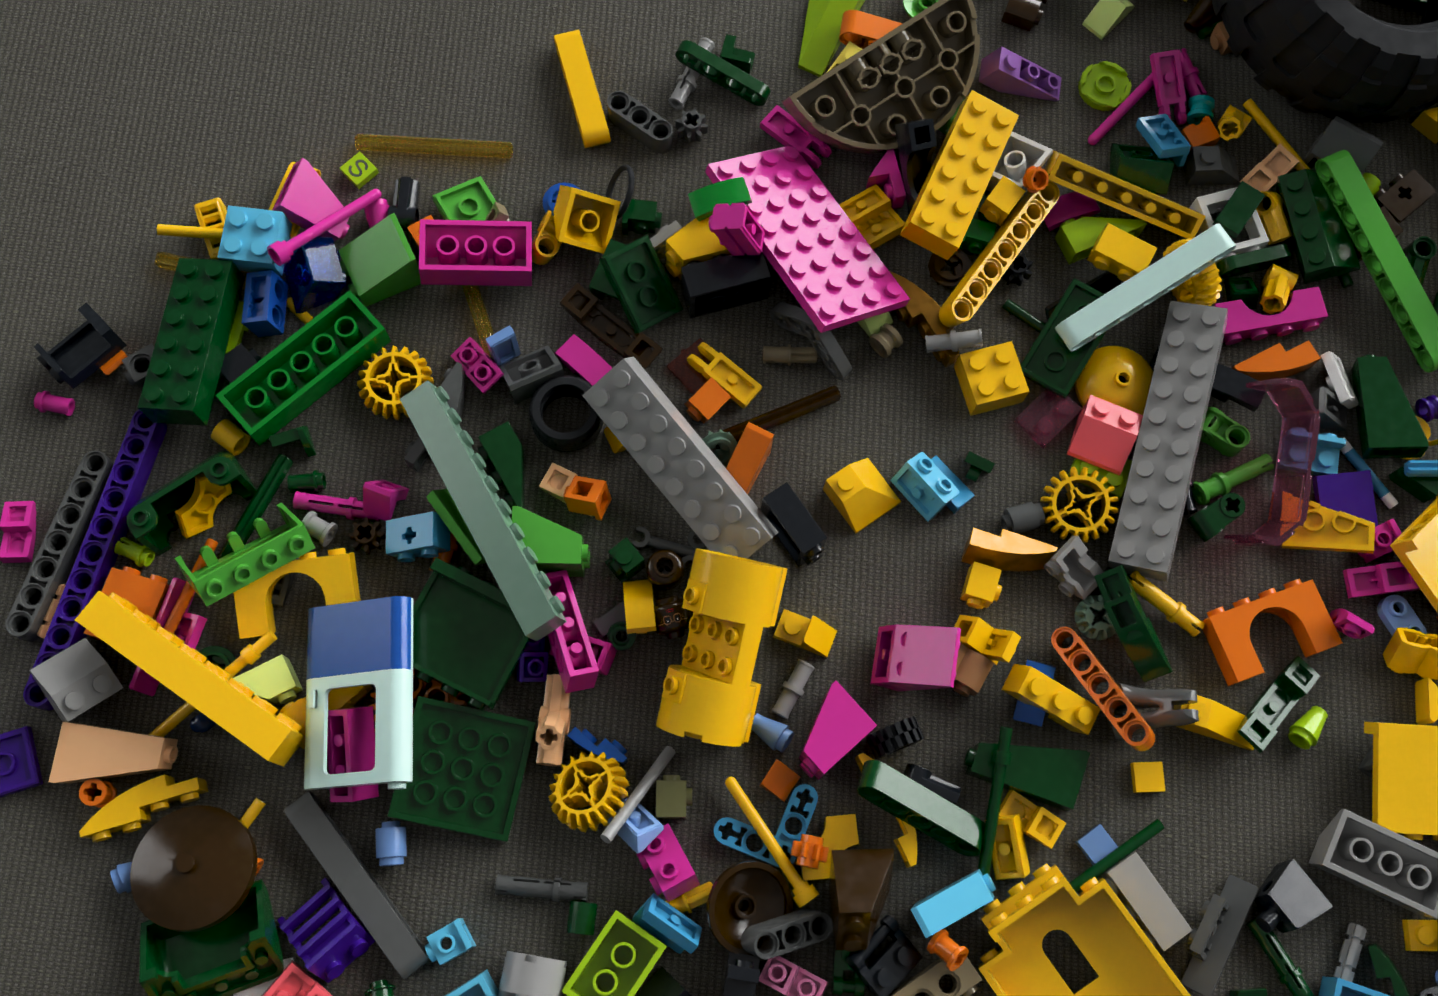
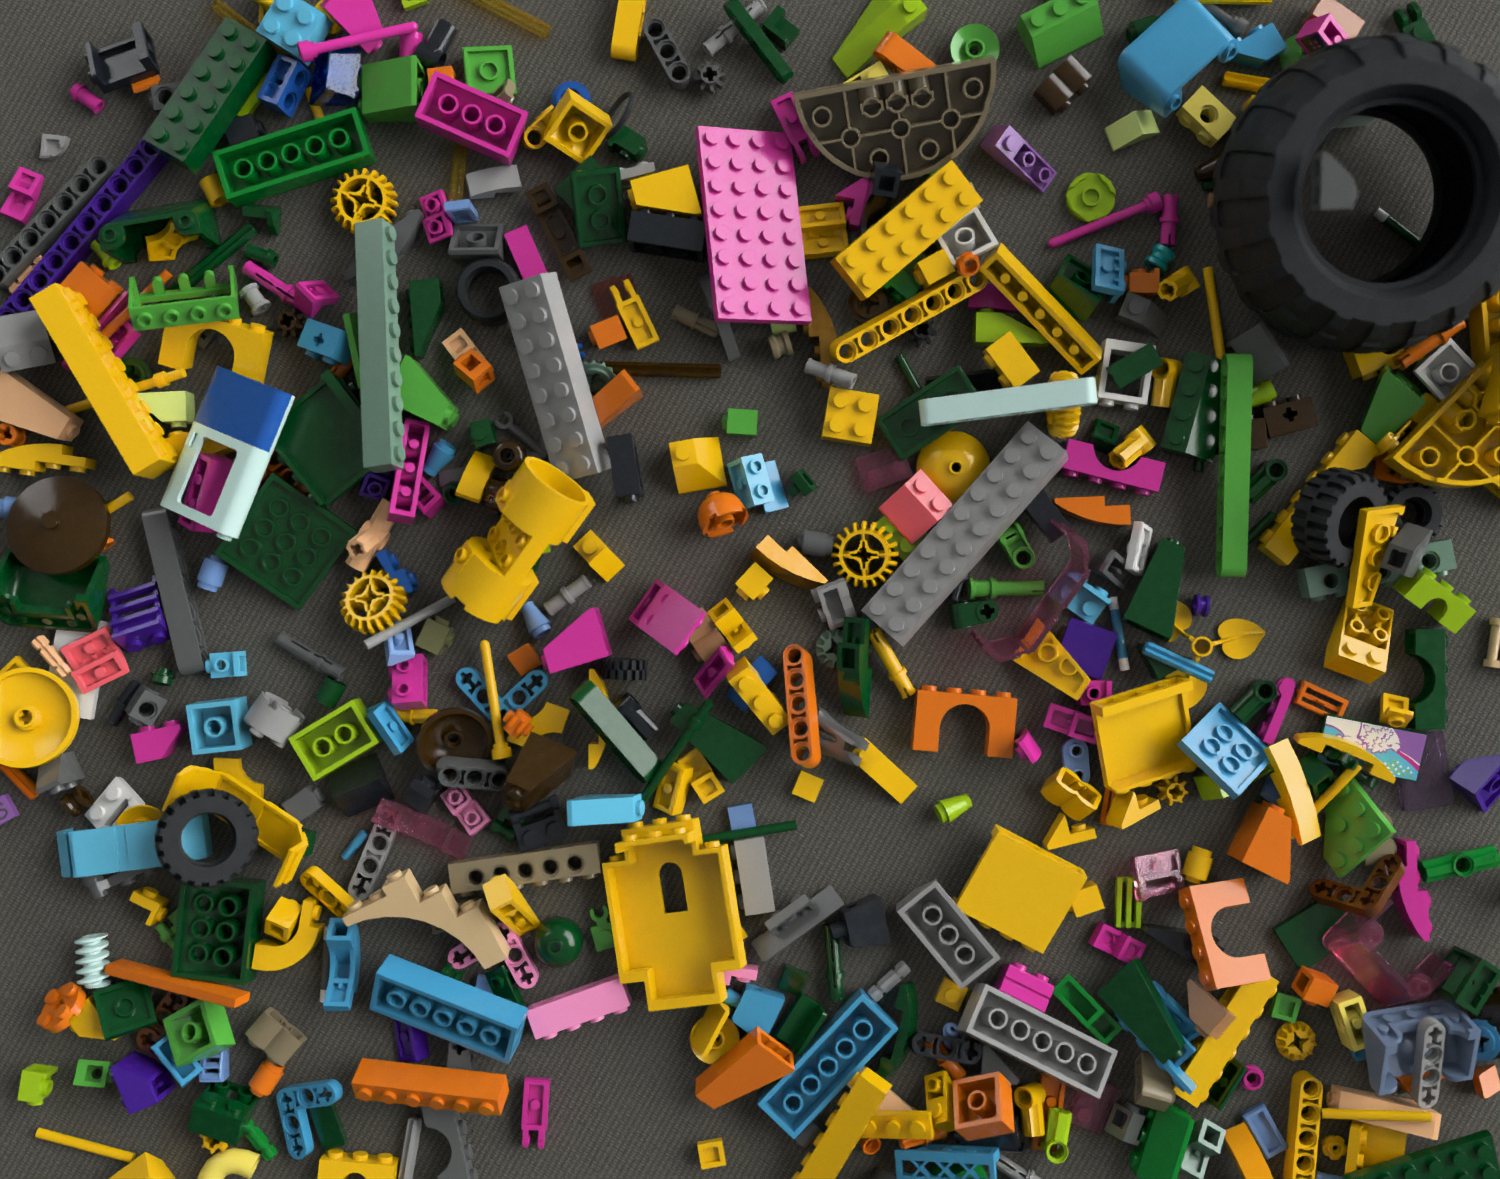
camera: 30 degrees right, 15 degrees up
(34, 467) = (53, 146): none -> light grey tile
(519, 306) = (493, 180): none -> light grey slope
(589, 603) = (439, 456): none -> dark azure cone
(722, 192) = (691, 163): green slope -> none
(737, 229) = (685, 201): dark pink brick -> none
(885, 432) = (740, 422): none -> bright green brick
(912, 528) = (720, 513): none -> orange cylinder
(947, 949) = (583, 841): orange bush -> none
(992, 694) = (714, 670): none -> dark pink slope
(1169, 84) = (1143, 223): dark pink hinge -> none
(1253, 261) = (1127, 415): dark green beam -> none
(1265, 173) = (1191, 339): light nougat slope -> none
(1276, 702) = (936, 778): slope -> none

